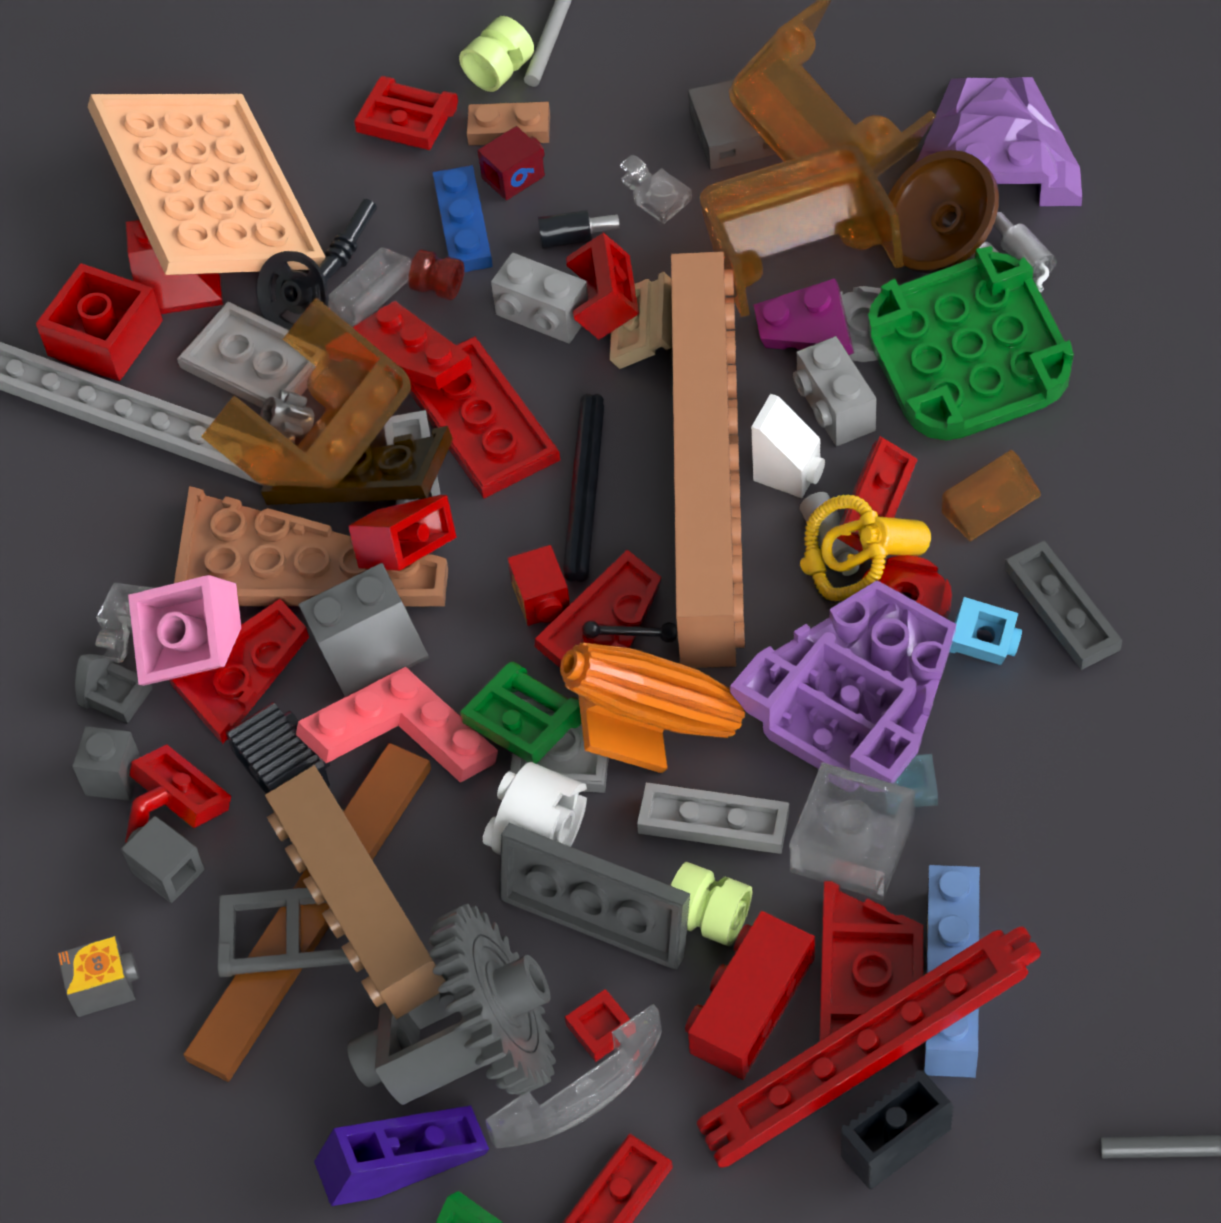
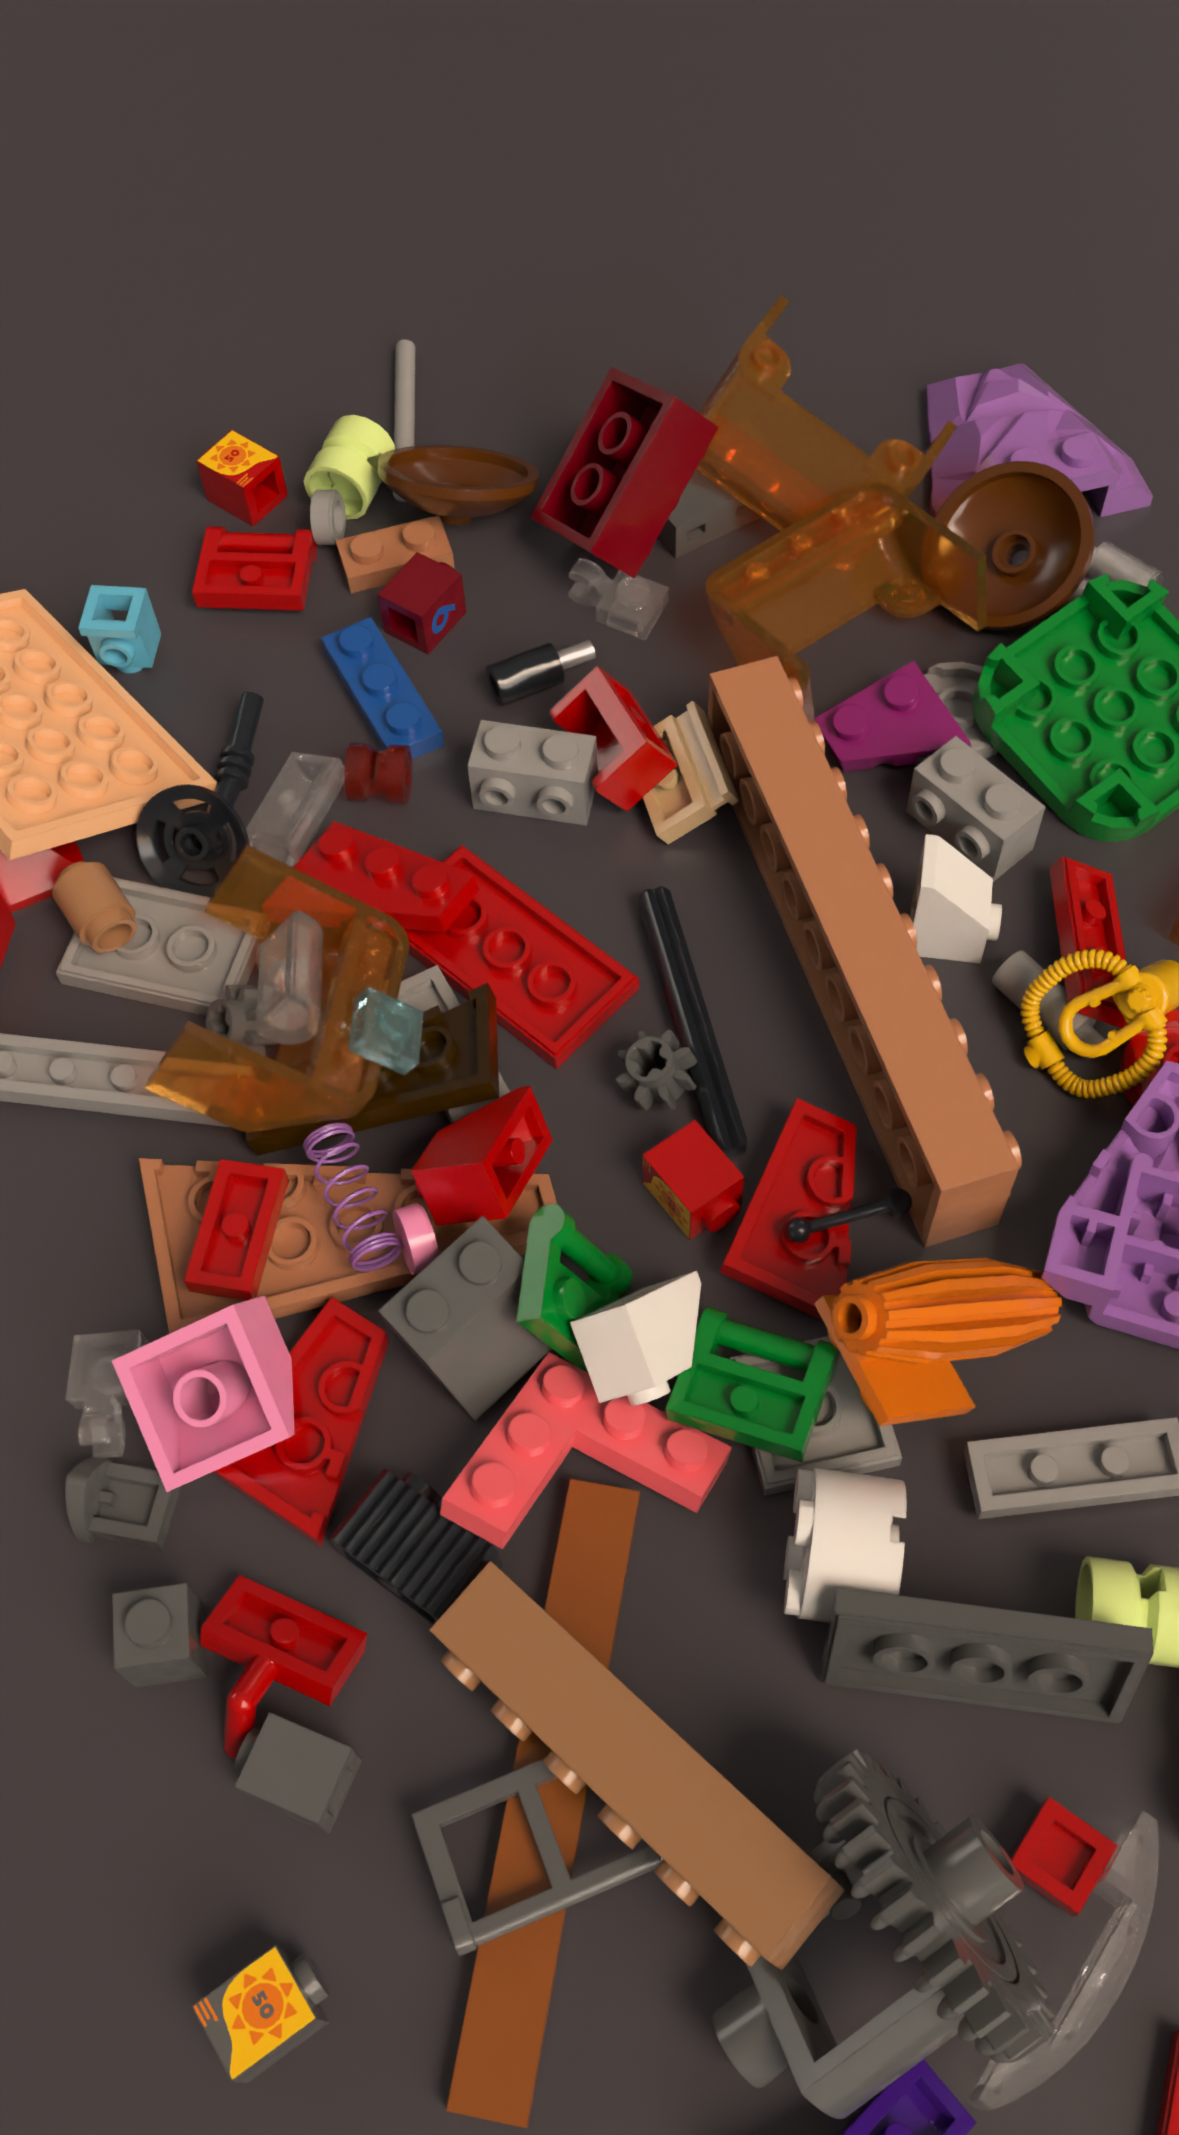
camera: 20 degrees left, 5 degrees up
(214, 320) = (95, 906): none -> medium nougat brick
(233, 539) = (236, 1230): none -> red plate
(294, 147) = (119, 643): none -> medium azure brick
(313, 564) = (371, 1243): none -> medium lavender piece
(322, 394) = (291, 981): none -> clear brick
(341, 566) = (415, 1236): none -> bright pink tile
(367, 438) = (386, 1030): none -> clear light blue plate
(419, 45) = (242, 477): none -> red brick
(419, 637) = (556, 1296): none -> green plate
(458, 664) = (641, 1340): none -> white slope
(468, 86) = (327, 517): none -> light grey tile
(543, 511) = (656, 1070): none -> dark grey gear
(567, 78) = (457, 480): none -> reddish brown dish
(676, 100) = (624, 471): none -> dark red brick

